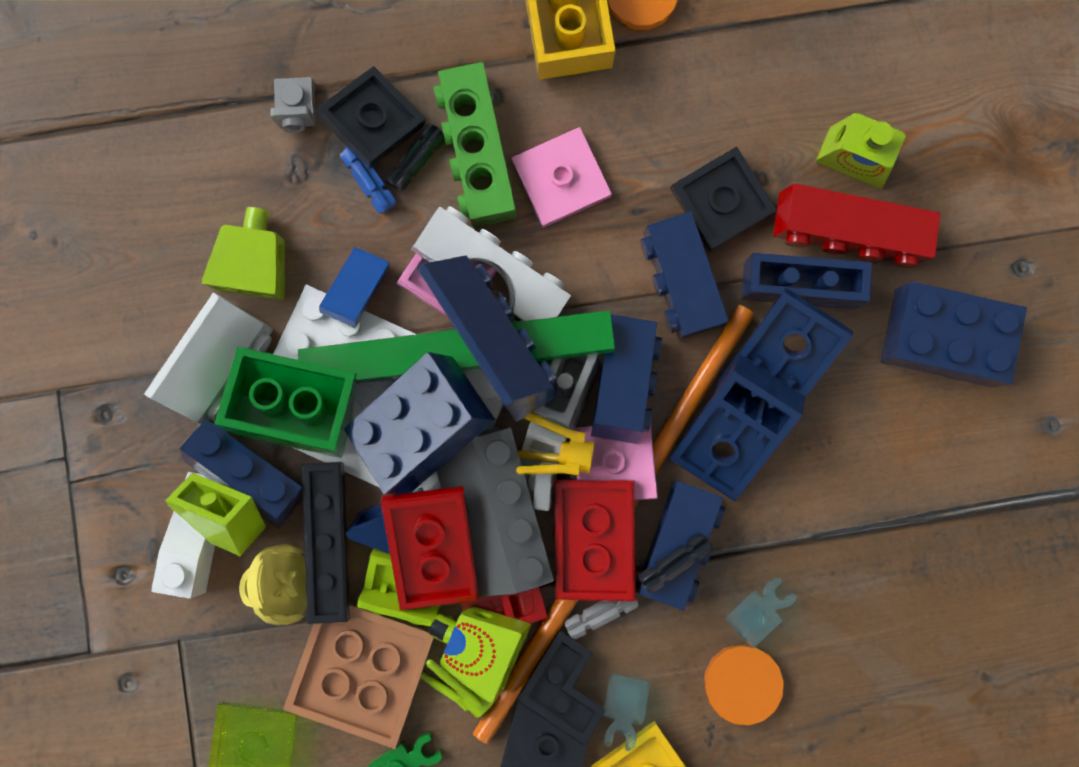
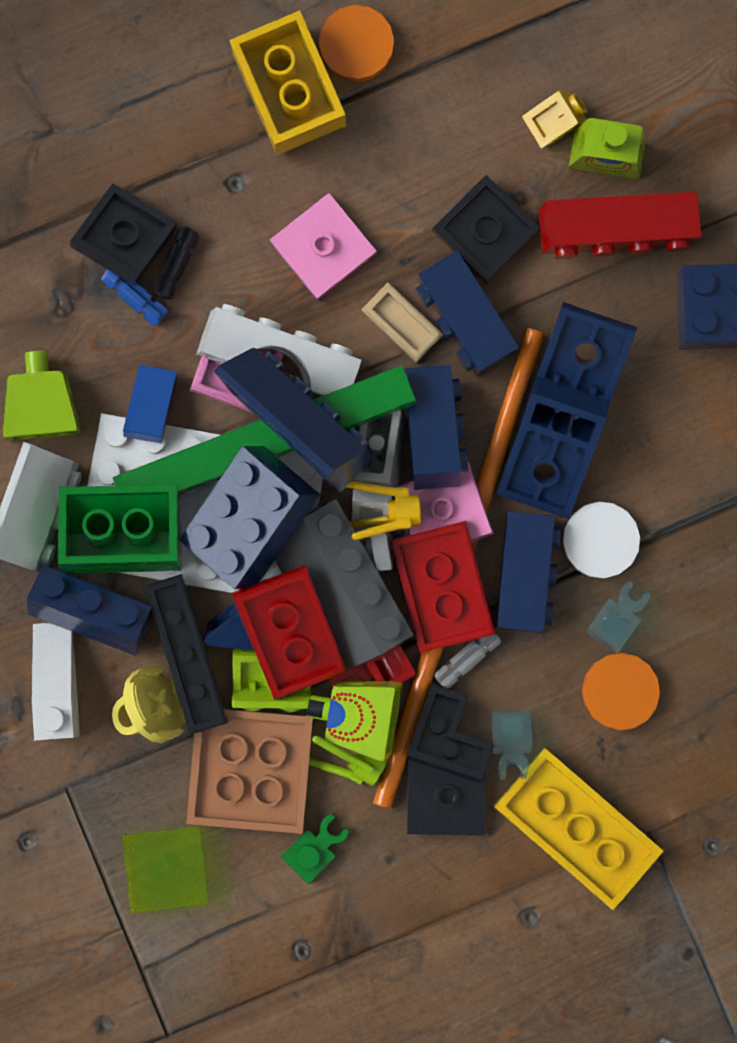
camera: 10 degrees left, 0 degrees up
(218, 513) = (78, 650): lime slope -> none
(294, 103) = (43, 239): light grey bracket -> none
(470, 86) = (213, 180): bright green brick -> none
(619, 269) = (402, 322): none -> tan tile
(675, 562) = (523, 587): black axle -> none
(760, 530) = (601, 540): none -> white tile
(814, 279) = (587, 287): dark blue brick -> none
(816, 108) = (555, 117): none -> yellow bracket

